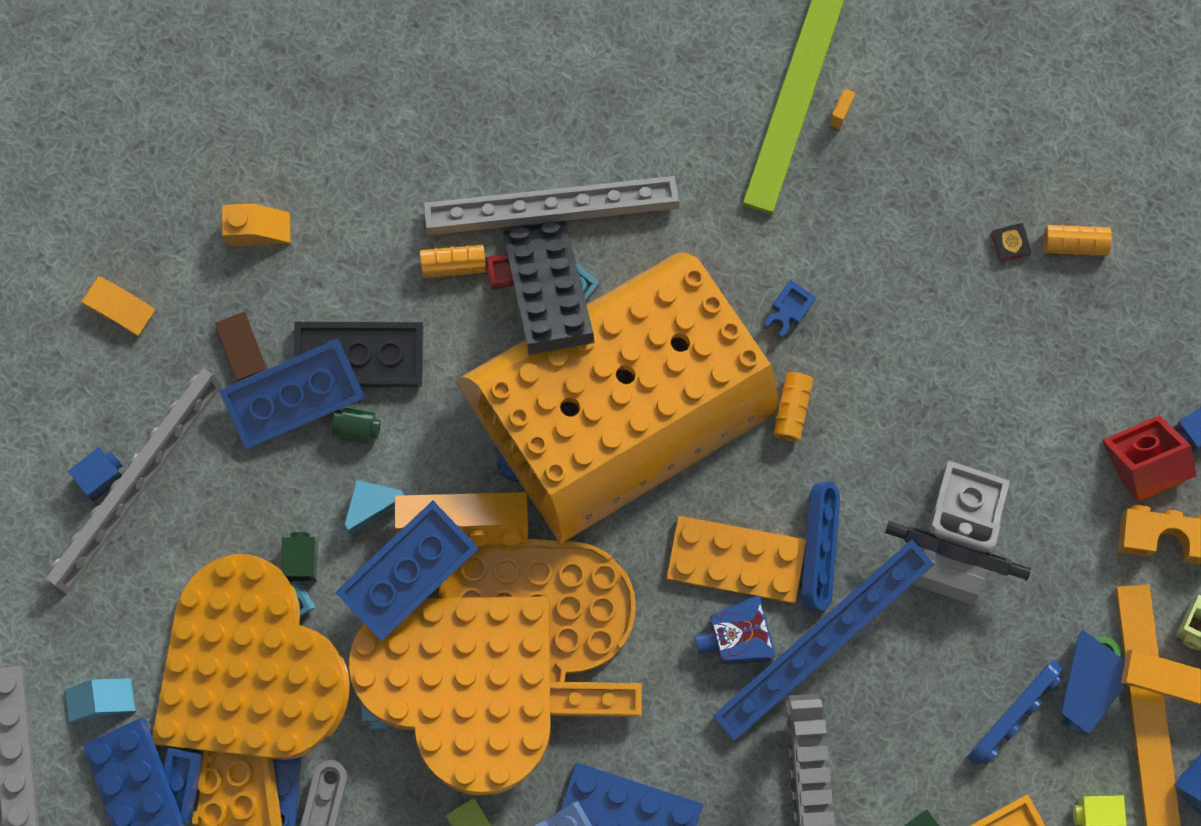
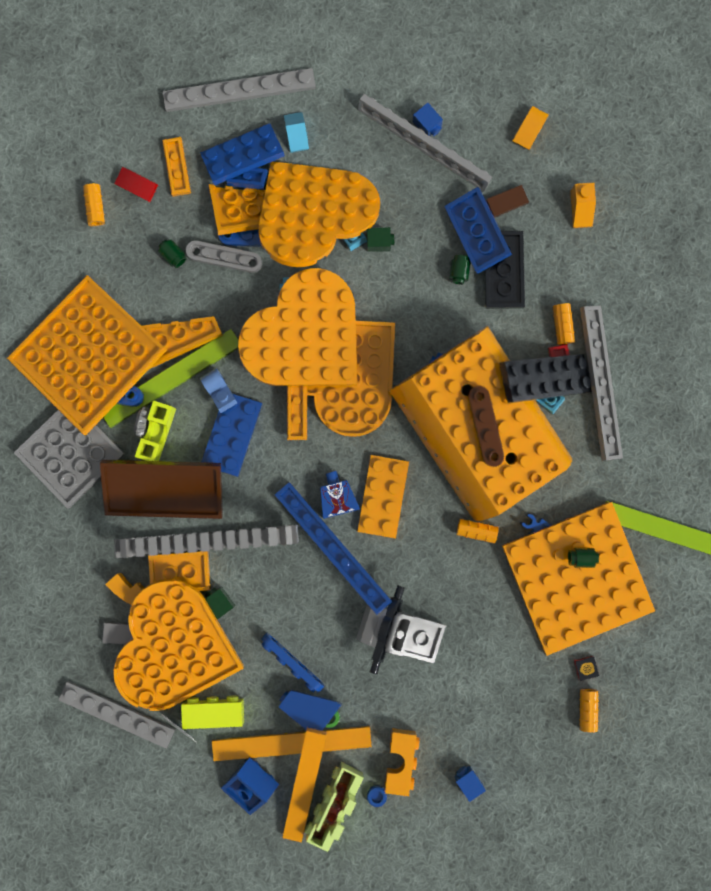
camera: 90 degrees right, 10 degrees up
(369, 504) = (411, 278): medium azure slope -> none
(407, 570) = (368, 298): blue plate -> none
(481, 516) = (402, 331): light orange brick -> none
(630, 378) = (486, 426): none -> reddish brown plate
(820, 546) = (391, 547): blue plate -> none
(836, 239) = (583, 558): none -> dark green brick
(842, 108) = (671, 563): light orange tile -> none
(868, 251) = (578, 602): none -> light orange plate
(1150, 457) = (450, 751): red slope -> none

